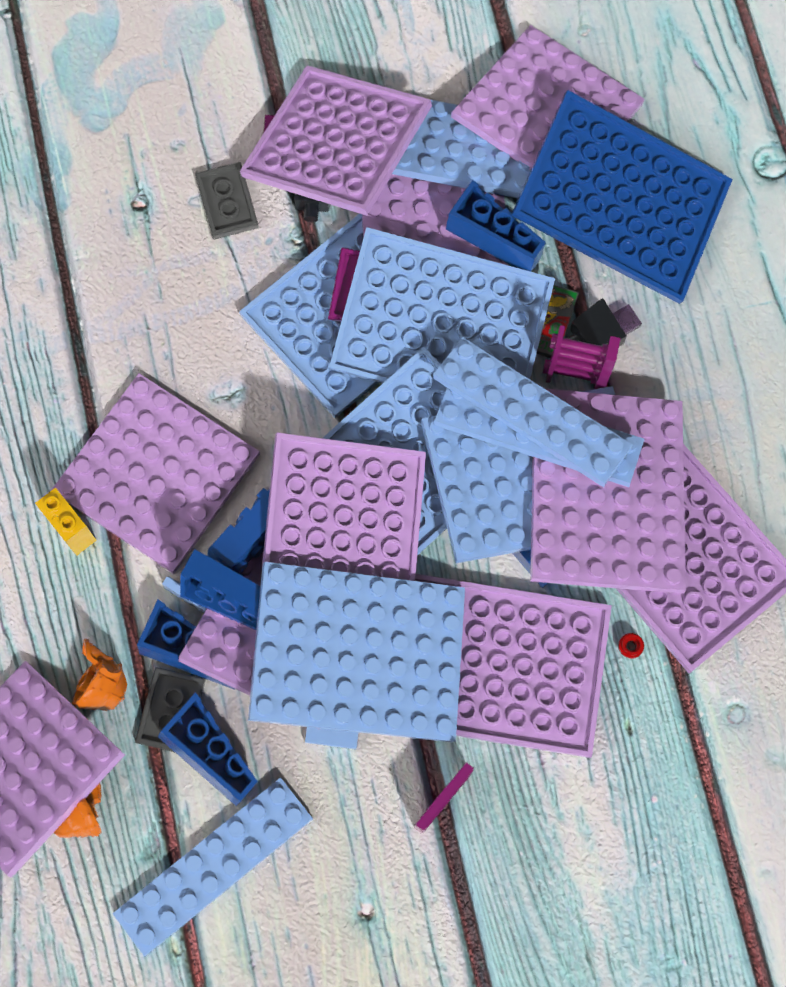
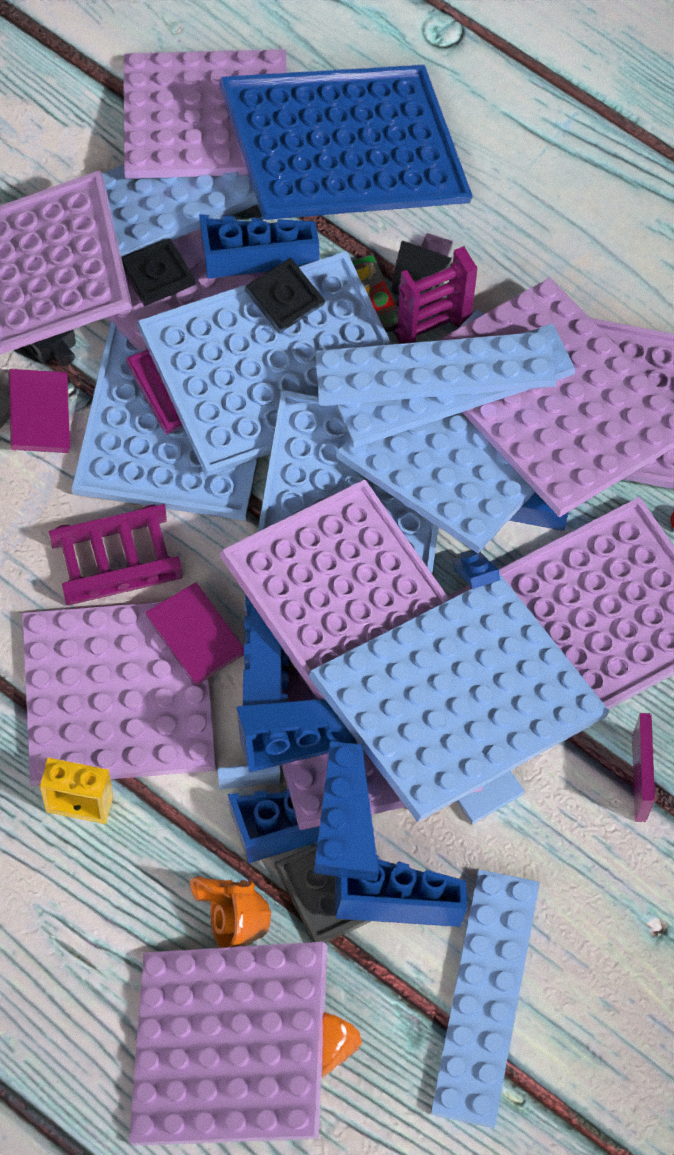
camera: 40 degrees left, 10 degrees down
(200, 683) = (346, 825): none -> blue wedge
(231, 401) = (112, 582): none -> magenta fence
(231, 472) = (195, 633): none -> magenta tile
(263, 241) = (39, 411): none -> magenta tile
(415, 200) = (157, 272): none -> black plate
(451, 573) = (475, 569): none -> blue plate
(481, 280) = (284, 295): none -> black plate

